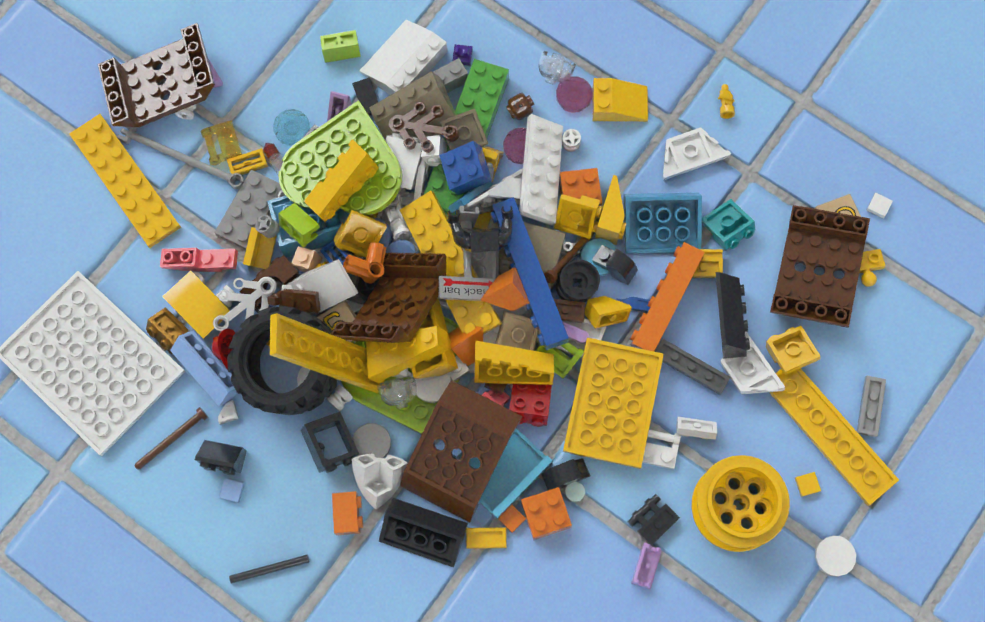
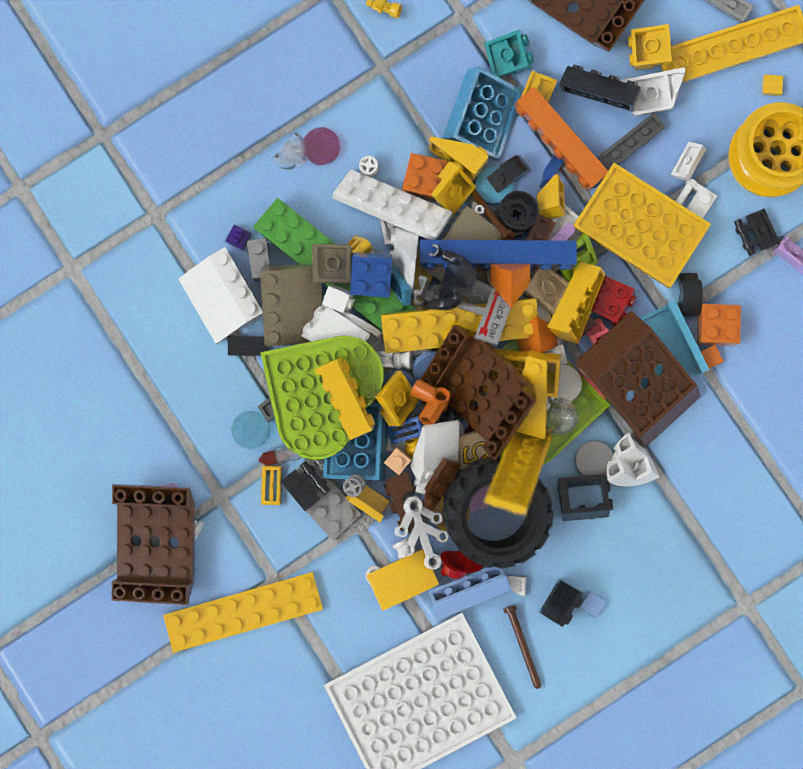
camera: 70 degrees left, 10 degrees up
(131, 134) = (196, 591): light grey hinge -> none
(165, 328) = (416, 616): pearl gold bracket -> none
(198, 260) = (356, 563): coral slope -> none
(227, 140) = (241, 497): clear yellow plate -> none
(250, 185) = (301, 490): none -> black plate
(269, 568) = (677, 593): black bar -> none
(298, 224) = (365, 454): lime hinge -> none
(337, 103) = (253, 378): lavender slope -> none
(339, 398) = (545, 475): white wheel -> none
(340, 46) = (183, 352): lime hinge -> none
(346, 513) = (654, 505): orange brick -> none
(422, 126) = (312, 303): plant -> none
(422, 532) = (695, 441): black slope -> none
(486, 538) = (719, 387): yellow tile -> none
(515, 145) = (353, 220): clear pink tile -> none
(520, 106) = (316, 201): reddish brown head -> none
(575, 492) = (709, 291): light aqua tile -> none
(619, 100) = (346, 106): yellow slope -> none
(691, 152) = (423, 61): white wing -> none

